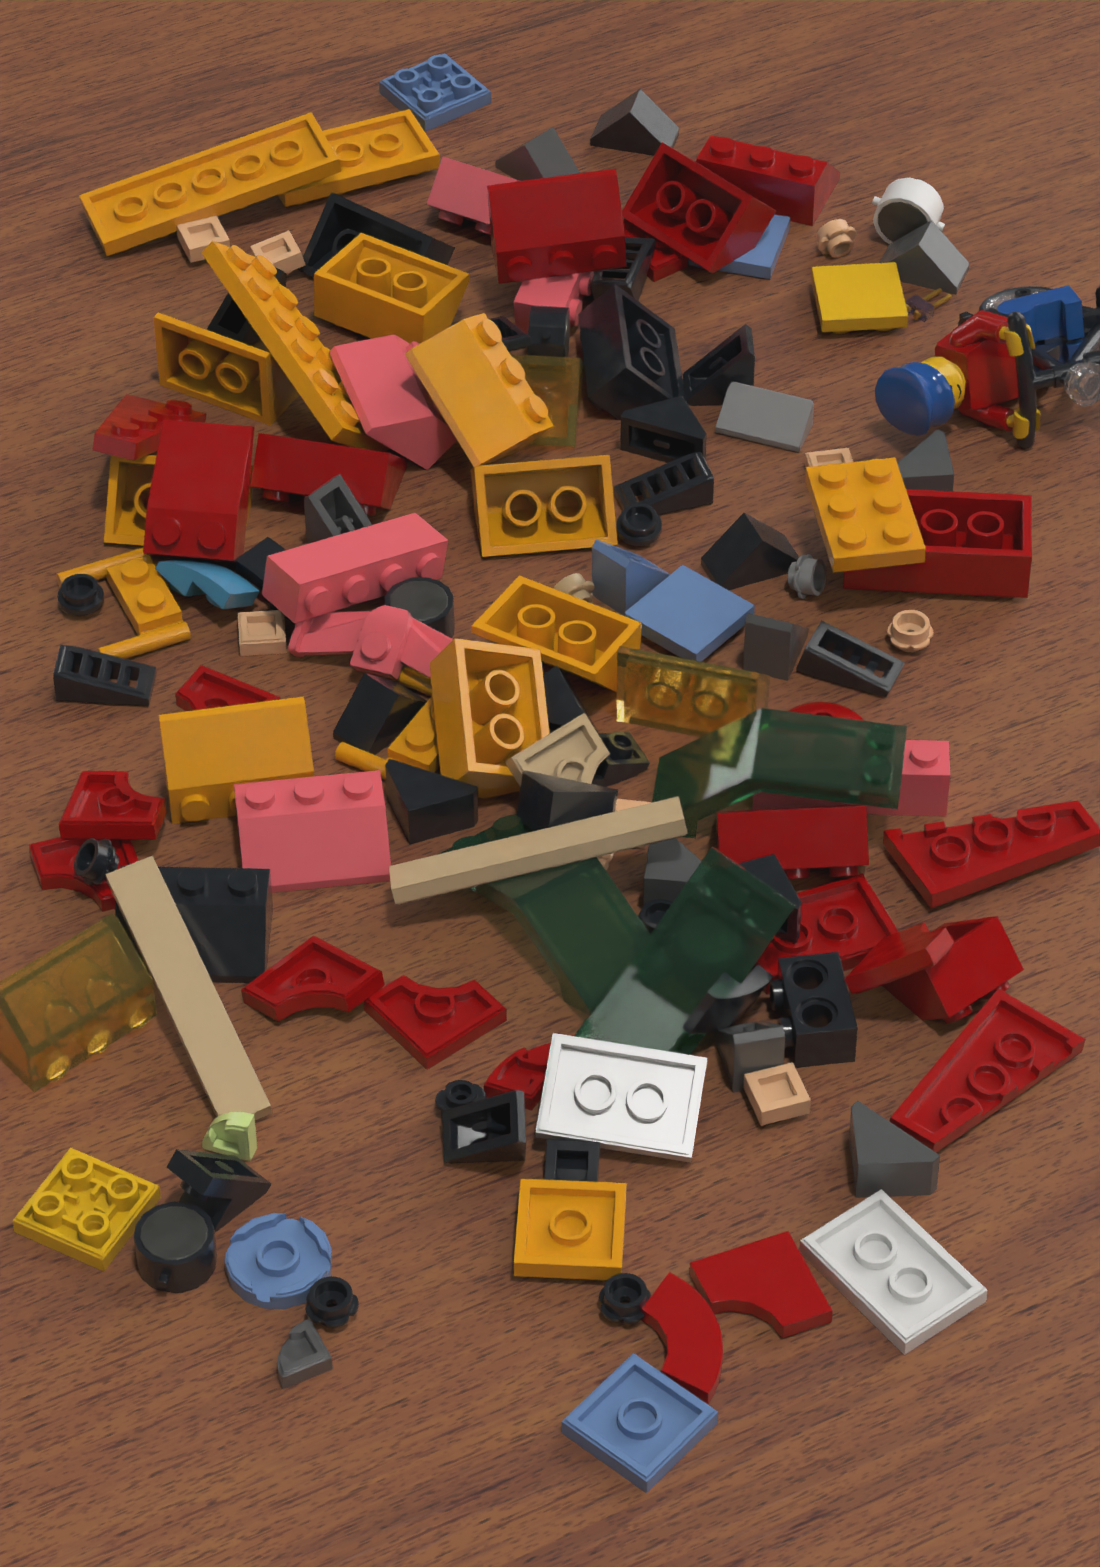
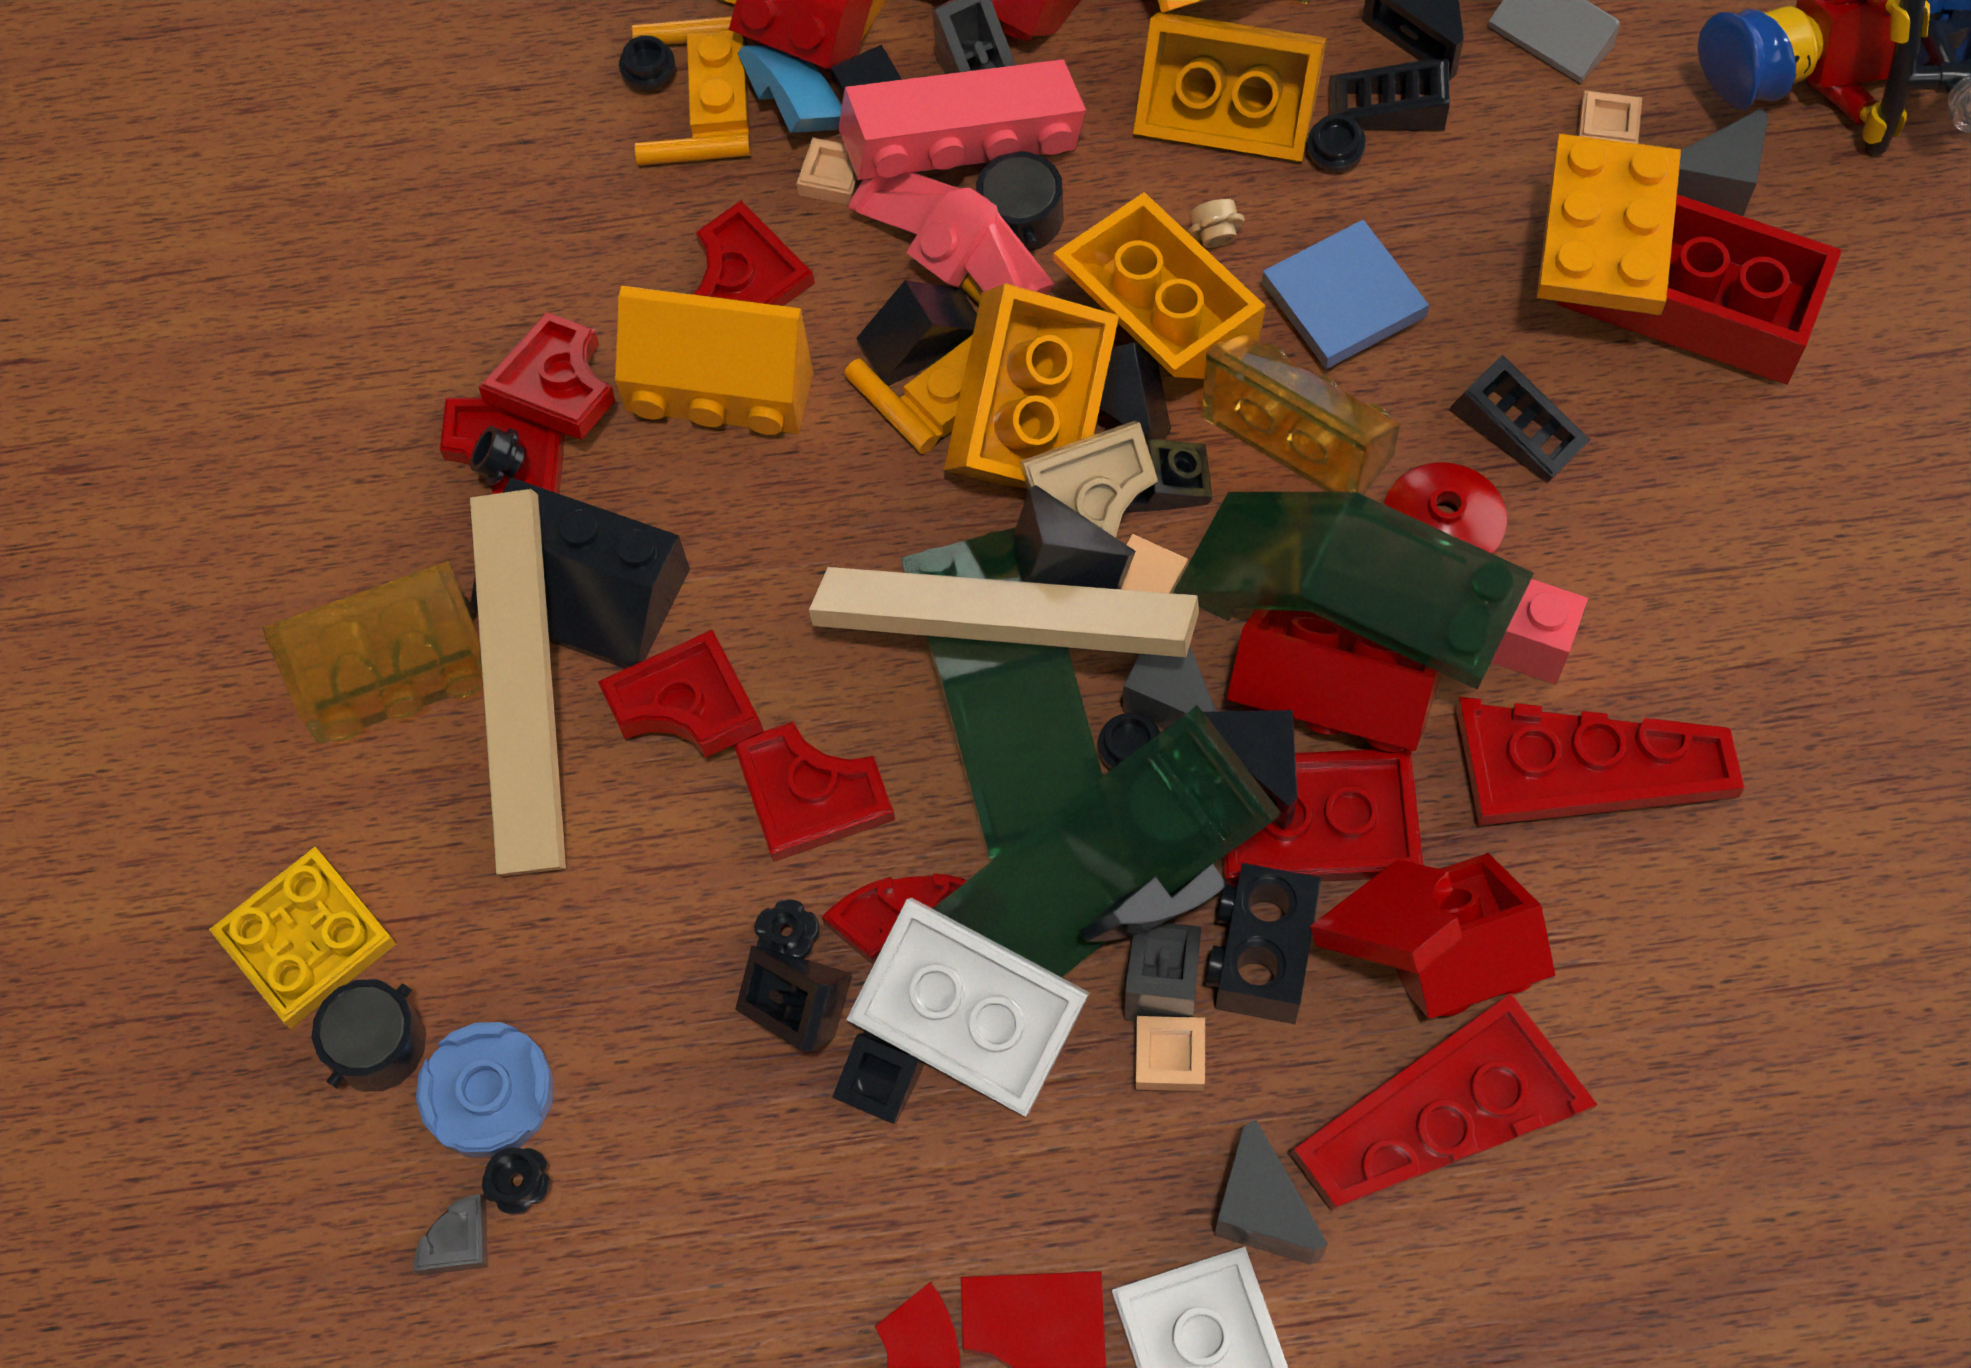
camera: 25 degrees right, 20 degrees up
(86, 677) = (594, 165): black slope -> none
(217, 1183) = (450, 960): black slope -> none
(232, 1135) = (501, 895): yellowish green tile -> none
(315, 830) = (766, 483): coral slope -> none
(429, 802) = (919, 482): black slope -> none
(570, 1229) = (836, 1173): light orange plate -> none
(622, 576) = (1289, 213): medium blue slope -> none
(624, 1288) = (848, 1289): black plate -> none
(748, 554) = (1456, 224): black slope -> none
(772, 646) = (1432, 365): dark grey slope -> none
(807, 576) = (1514, 276): light grey plate -> none
(910, 631) = (1617, 383): light nougat plate -> none

